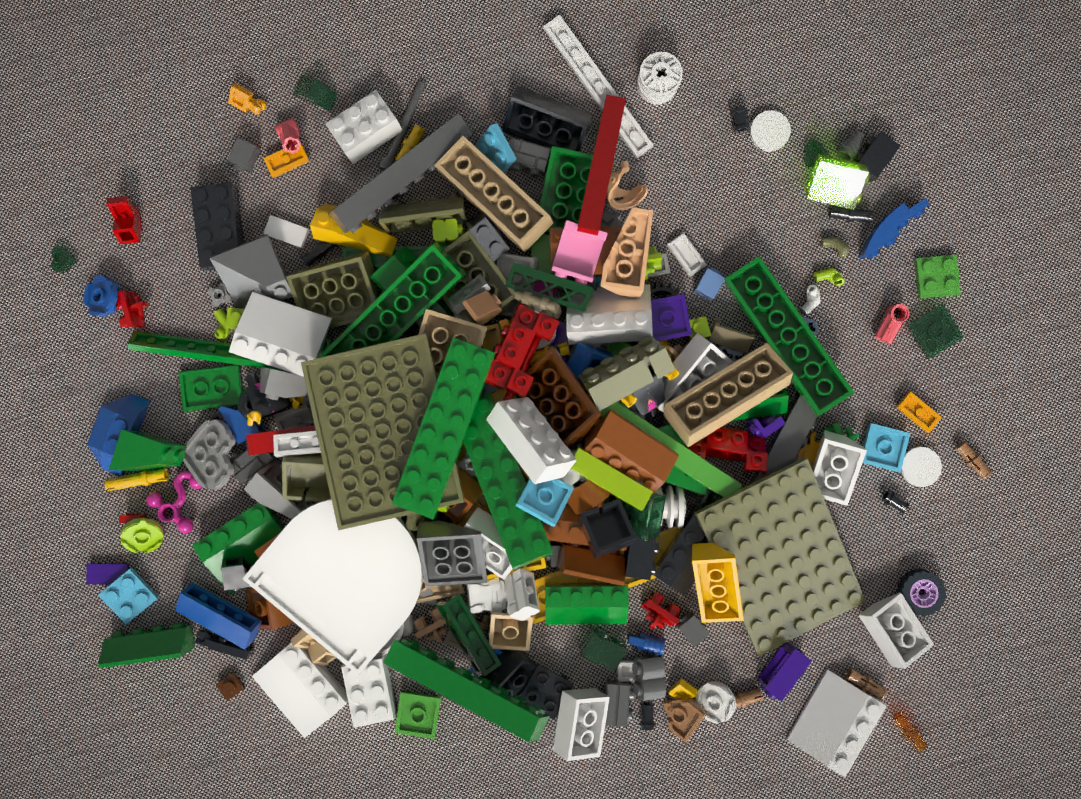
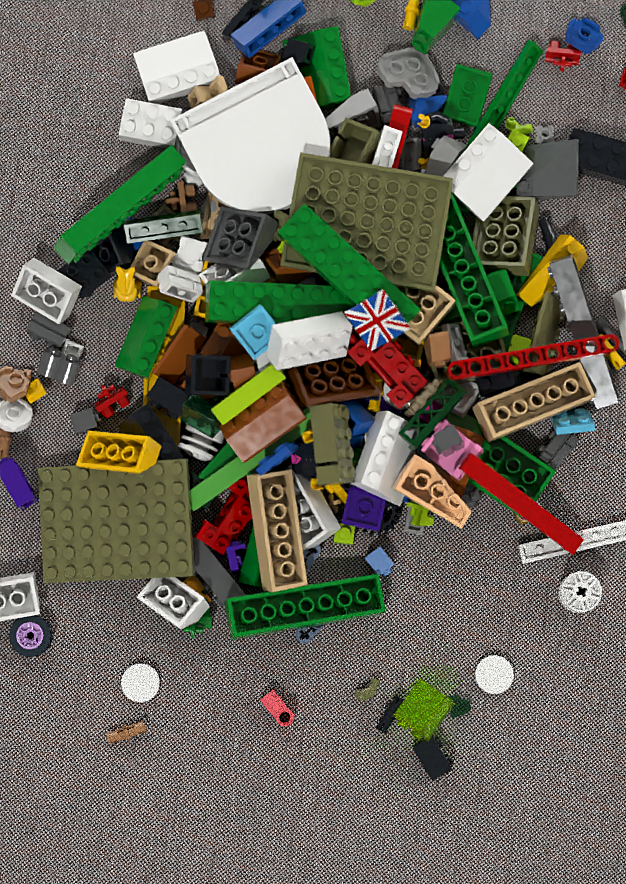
camera: 110 degrees right, 5 degrees down
(155, 500) = (389, 10): dark pink piece -> none
(286, 231) = (577, 214): white tile -> none
(418, 714) = (111, 157): bright green plate -> none
(444, 200) = (542, 357): none -> red beam
(483, 377) = (377, 320): none -> sticker
(543, 647) = (125, 286): none -> yellow hair
(546, 121) = (581, 478): black slope -> none
(574, 258) = (447, 441): none -> dark grey brick
(602, 648) = (101, 337): clear green brick -> none
(630, 197) = (497, 511): light nougat helmet -> none
(647, 643) = (88, 378): blue hinge -> none
(647, 713) = (24, 351): black pin -> none
(662, 422) = (273, 461): none -> blue plate
(686, 254) = (414, 554): white tile -> none
(731, 337) = (325, 560): dark tan hinge -> none
(740, 119) = (514, 650): black bush -> none
(813, 299) = (327, 649): white arm -> none
(831, 275) = (342, 675): lime arm -> none
(849, 148) = (450, 739): dark grey cone -> none
(885, 447) = (171, 656): medium azure plate -> none
(888, 228) = (362, 738): blue slope -> none
(890, 498) = (118, 647): black pin -> none
(918, 412) = (189, 700): light orange plate -> none
(935, 331) = (255, 745): clear green plate -> none
(937, 276) = (302, 770): bright green plate -> none

